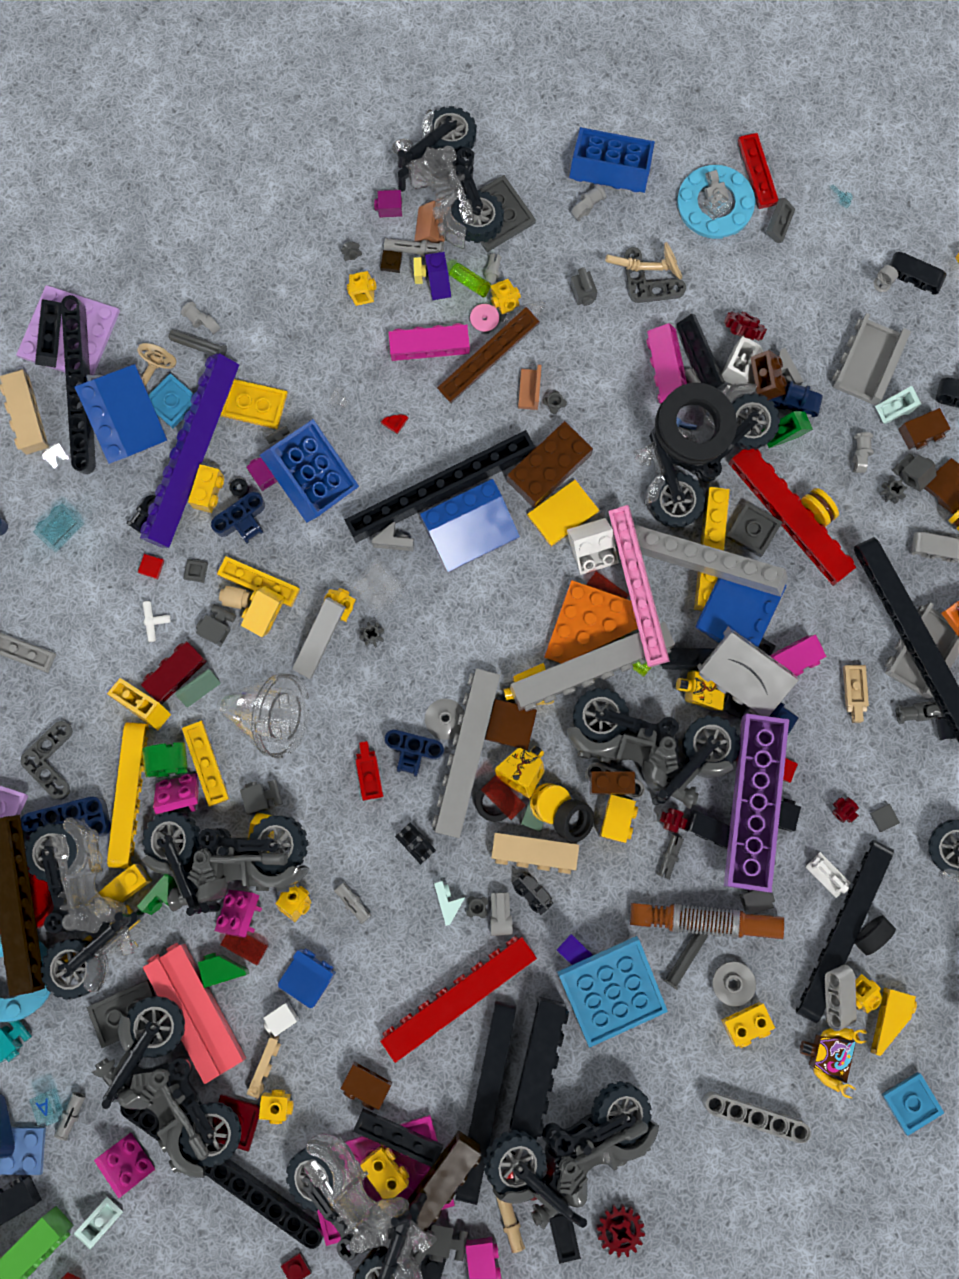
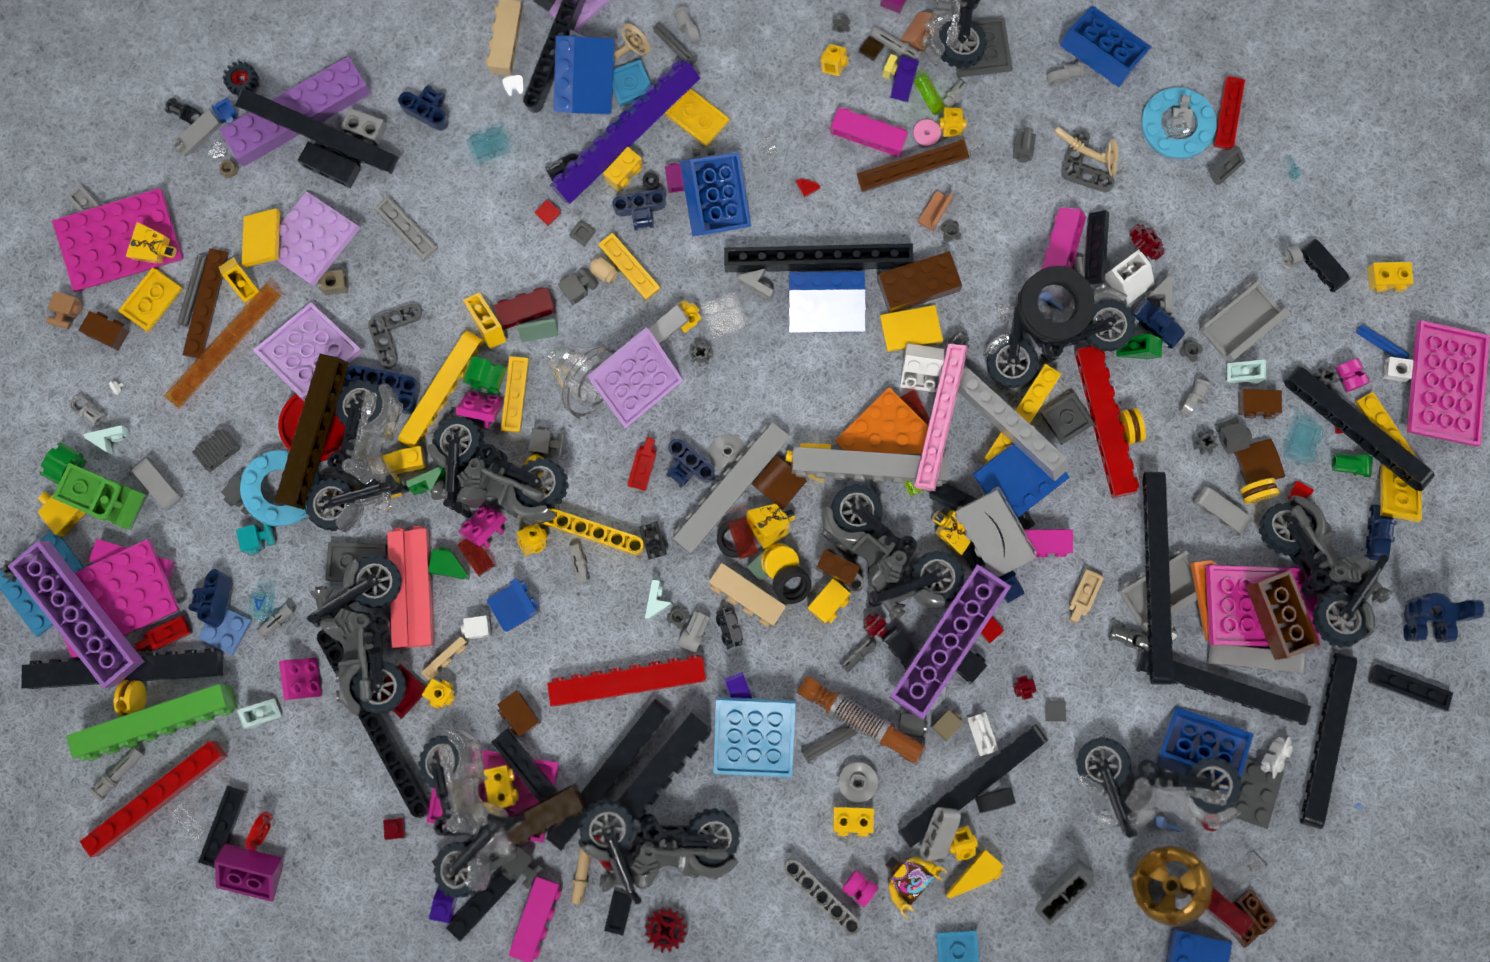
camera: 30 degrees right, 0 degrees up
(150, 621) = (526, 257): white piece -> none
(262, 611) = (620, 291): yellow brick -> none
(319, 690) = (635, 377): none -> lavender plate
(348, 867) = (591, 528): none -> yellow beam
(614, 501) = (958, 339): none -> dark grey gear
(768, 374) = (1143, 292): reddish brown brick -> none
(789, 1089) = (860, 888): none -> dark pink wheel
(791, 883) = (947, 724): none -> dark tan brick
(837, 404) = (1189, 344): none -> dark grey plate

